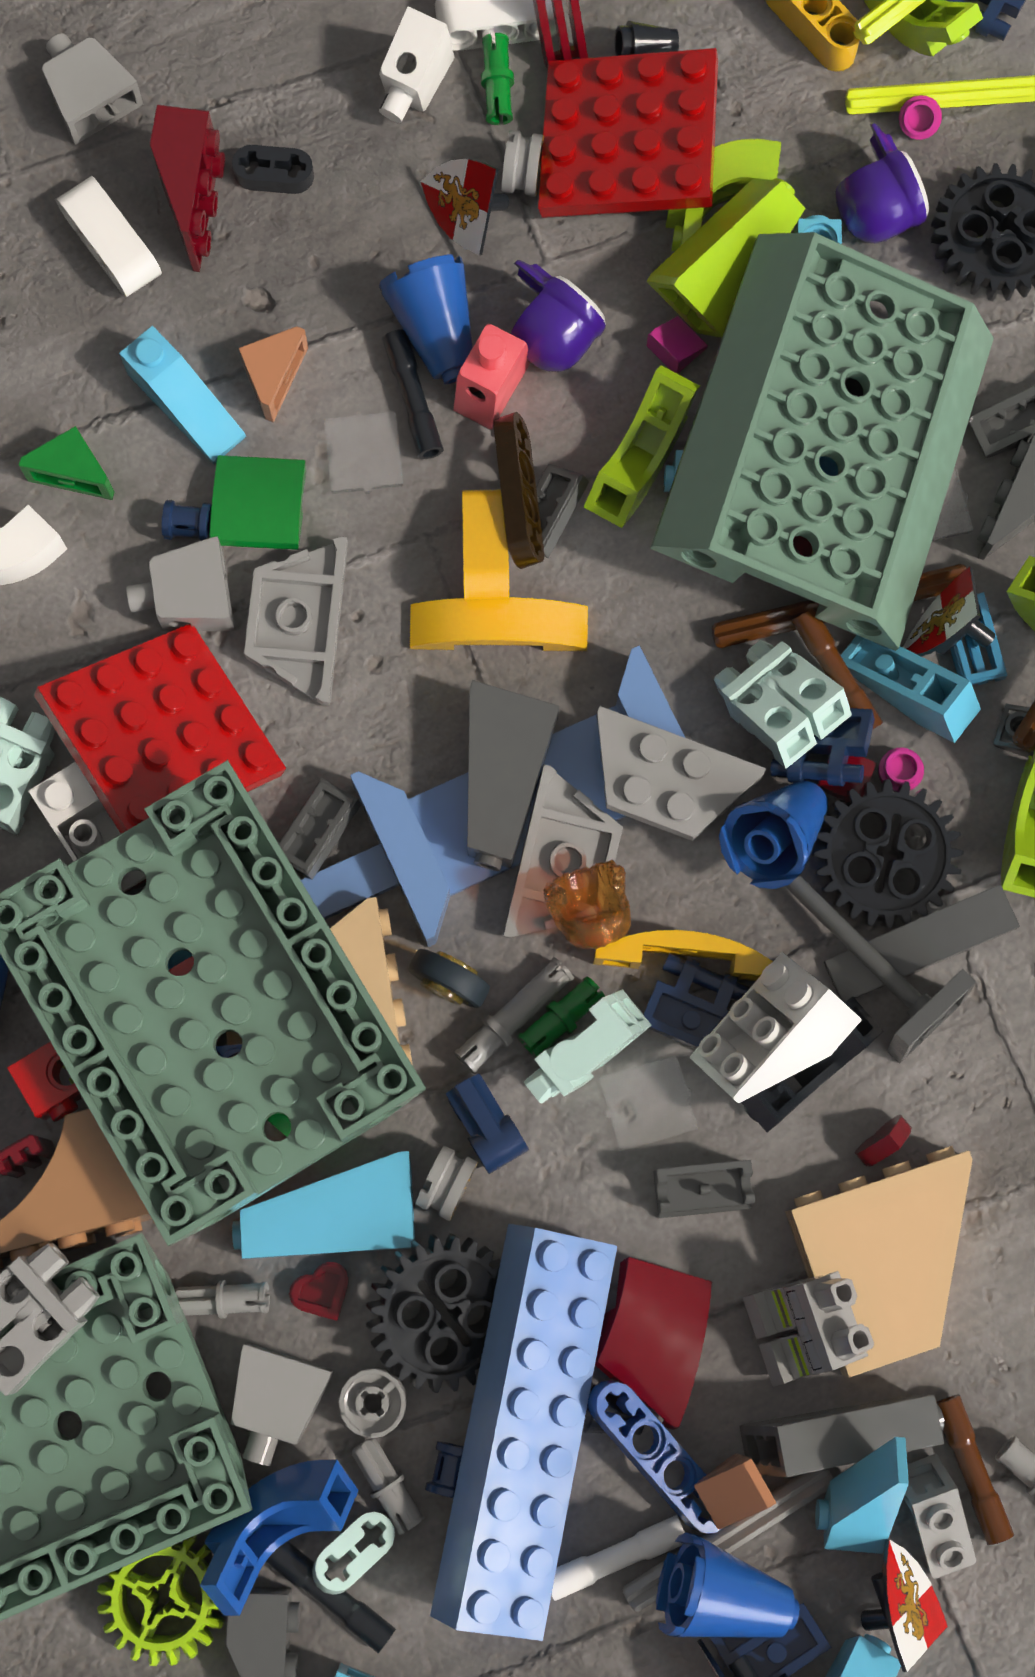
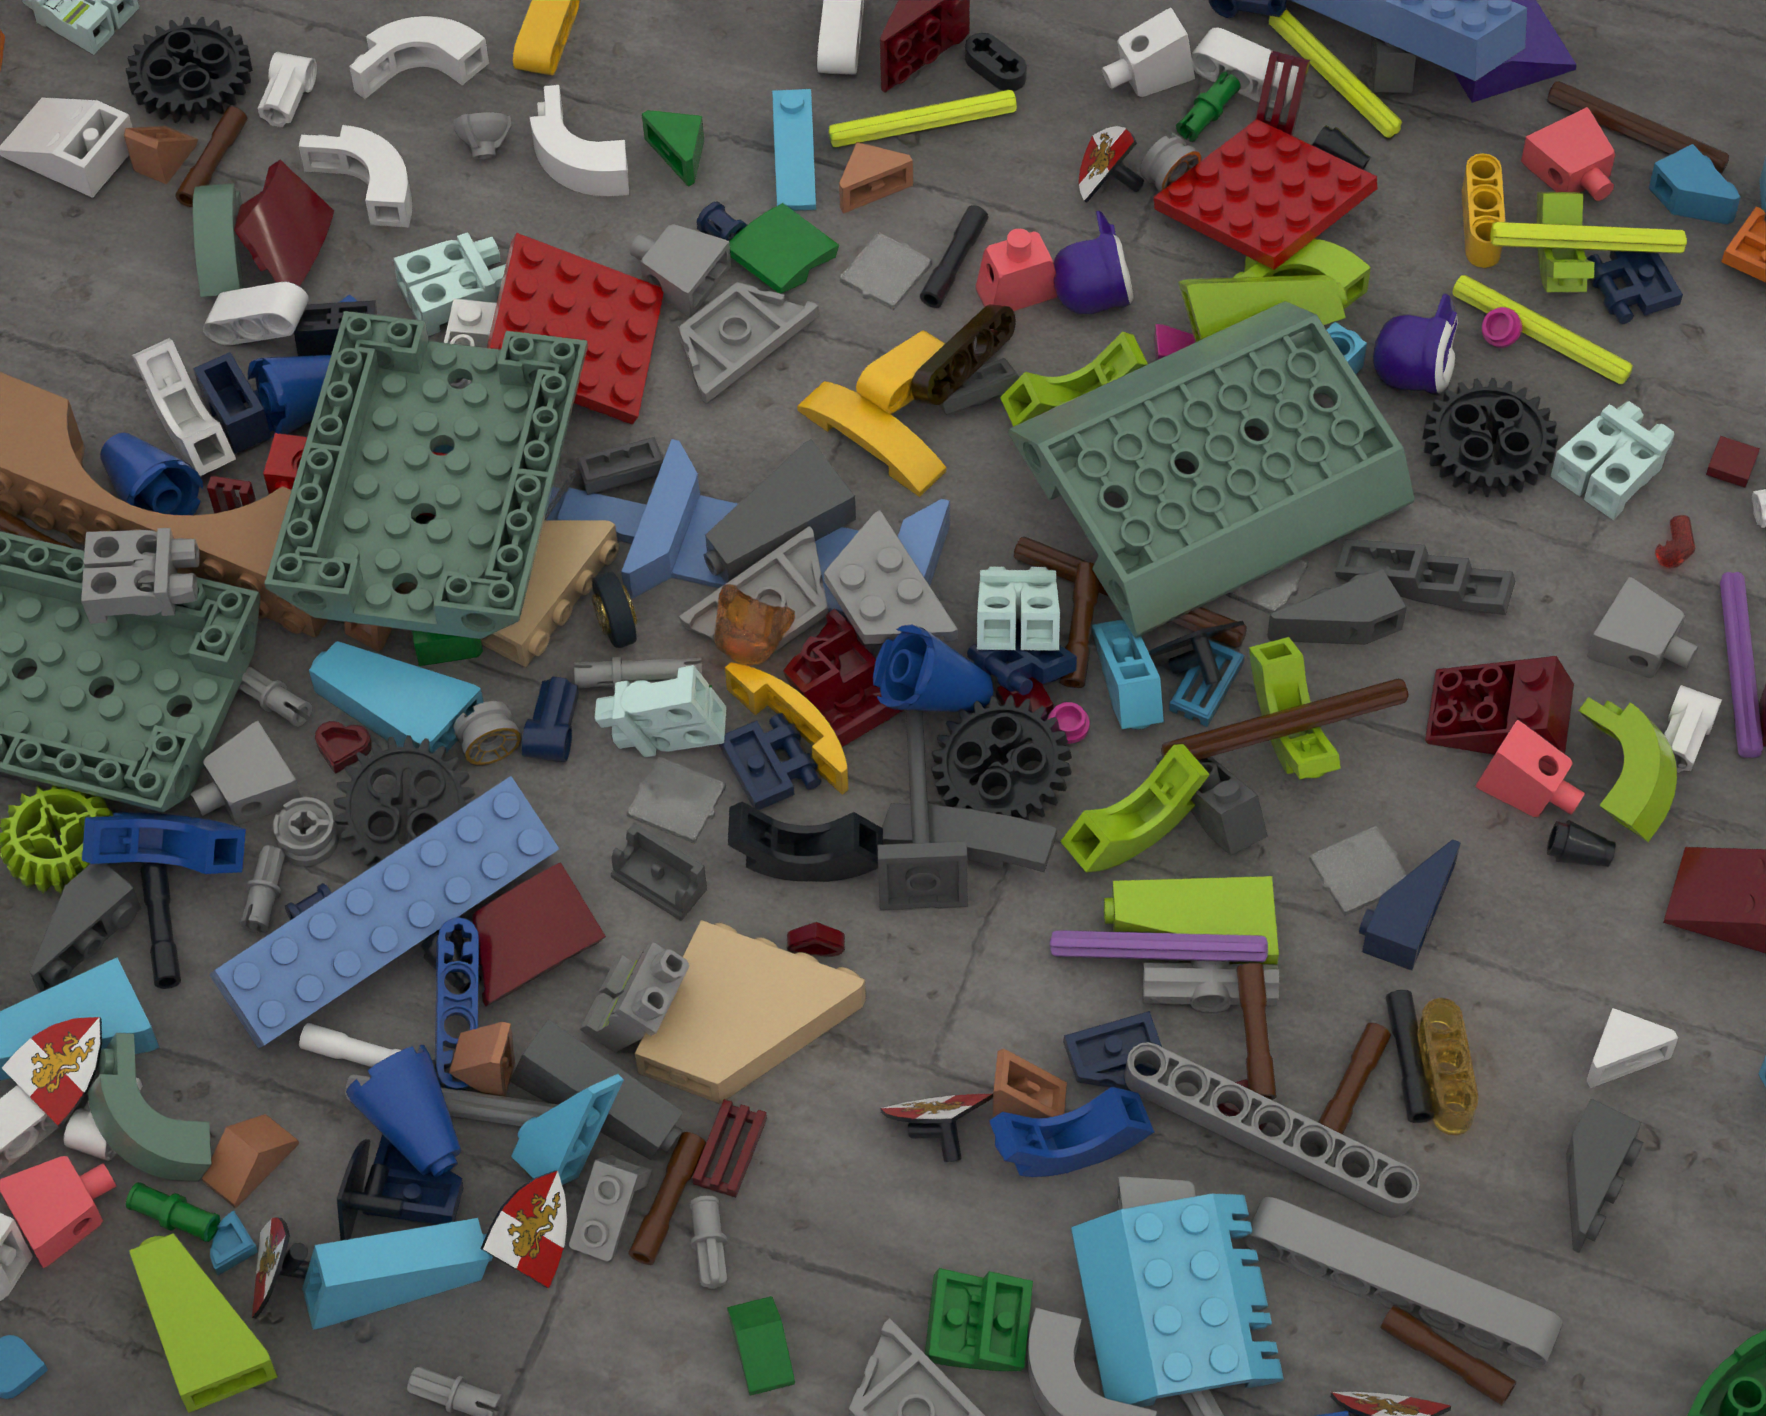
camera: 45 degrees right, 20 degrees down
(260, 275) = (922, 118): none -> neon yellow axle
(361, 1561) = (200, 907): light aqua beam -> none
(433, 312) = (1016, 198): blue cone -> none
(685, 883) = (838, 680): none -> dark red slope
(774, 1031) = (807, 790): white slope -> none
(996, 1418) = (741, 1116): none -> dark red tile

